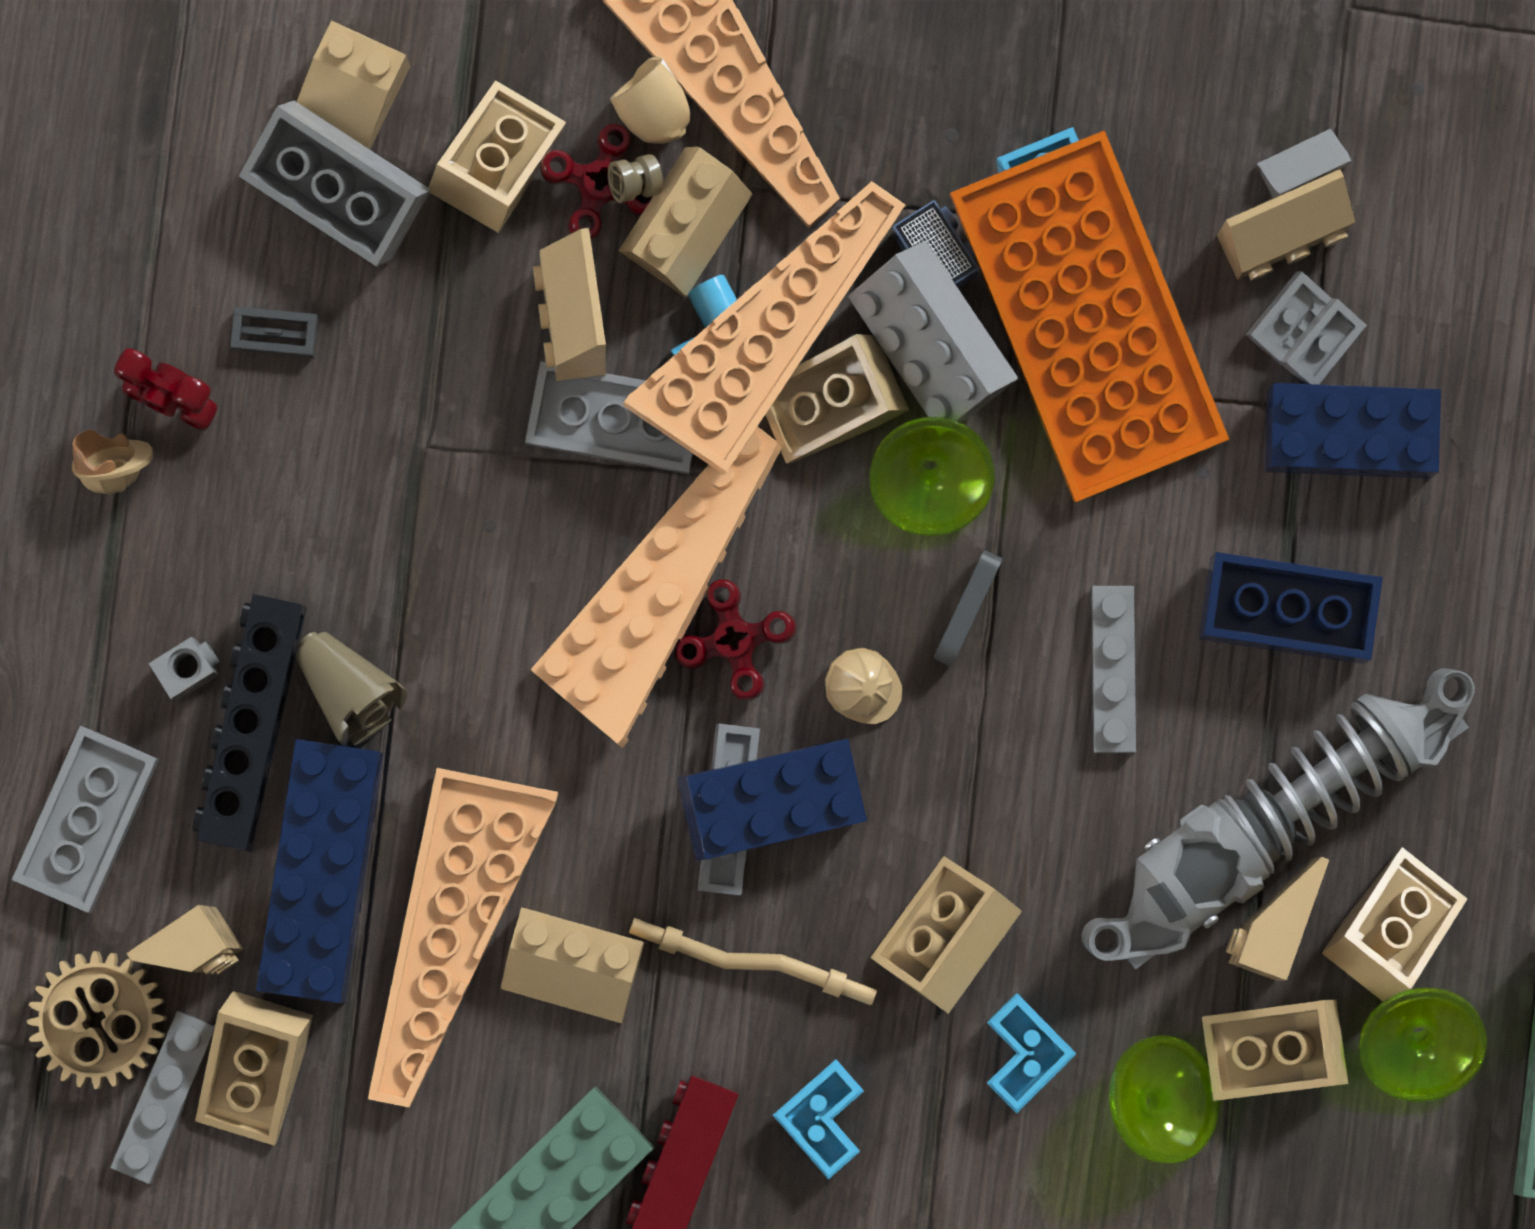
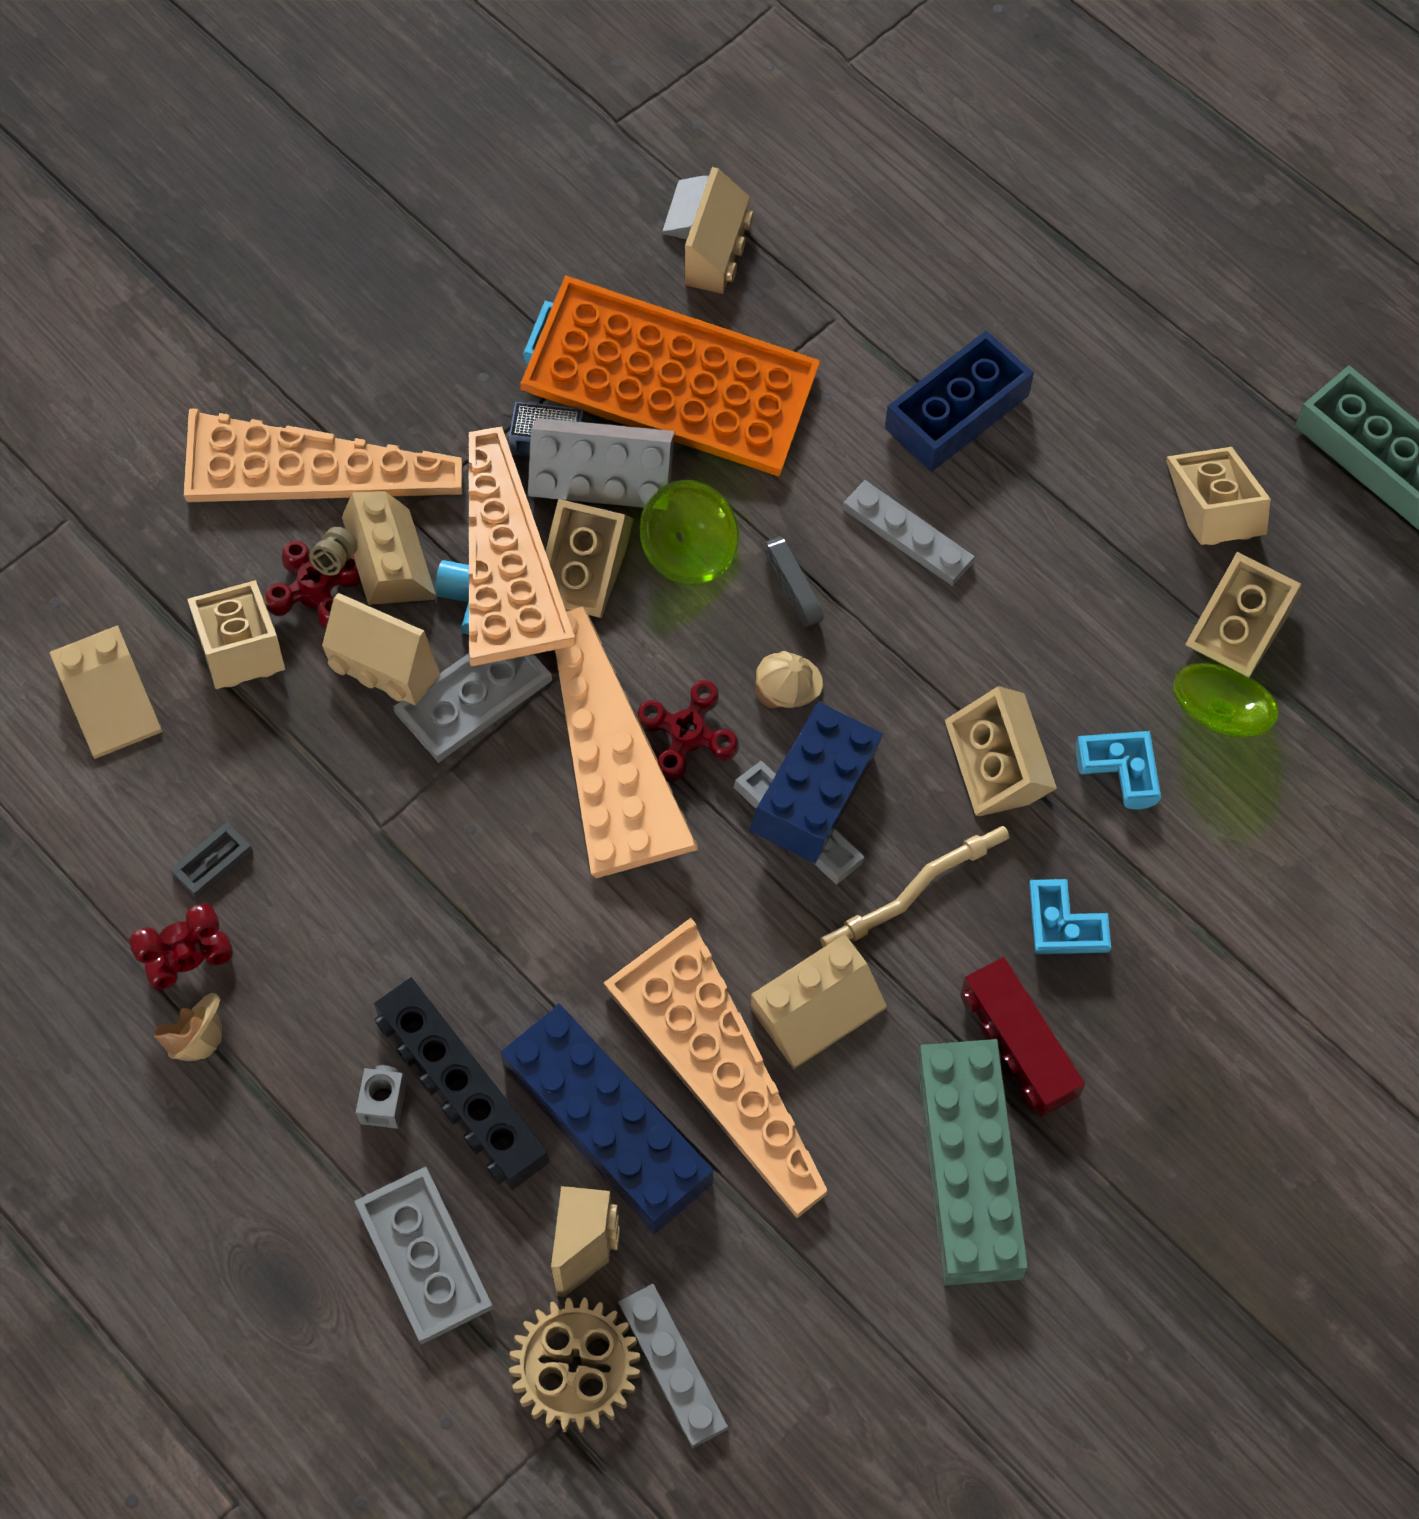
camera: 50 degrees left, 20 degrees down
(252, 1067) = (707, 1280): tan slope -> none
(334, 183) = (153, 733): light grey brick -> none
(348, 688) = (494, 994): dark tan cone -> none
(653, 103) = (296, 513): tan piece -> none
(1231, 845) = (1086, 532): piece -> none
(1274, 931) = (1165, 550): tan slope -> none
(1305, 329) = (789, 278): light grey slope -> none
(1353, 430) = (876, 293): dark blue brick -> none
(1427, 1062) = (1323, 524): clear neon green dish -> none

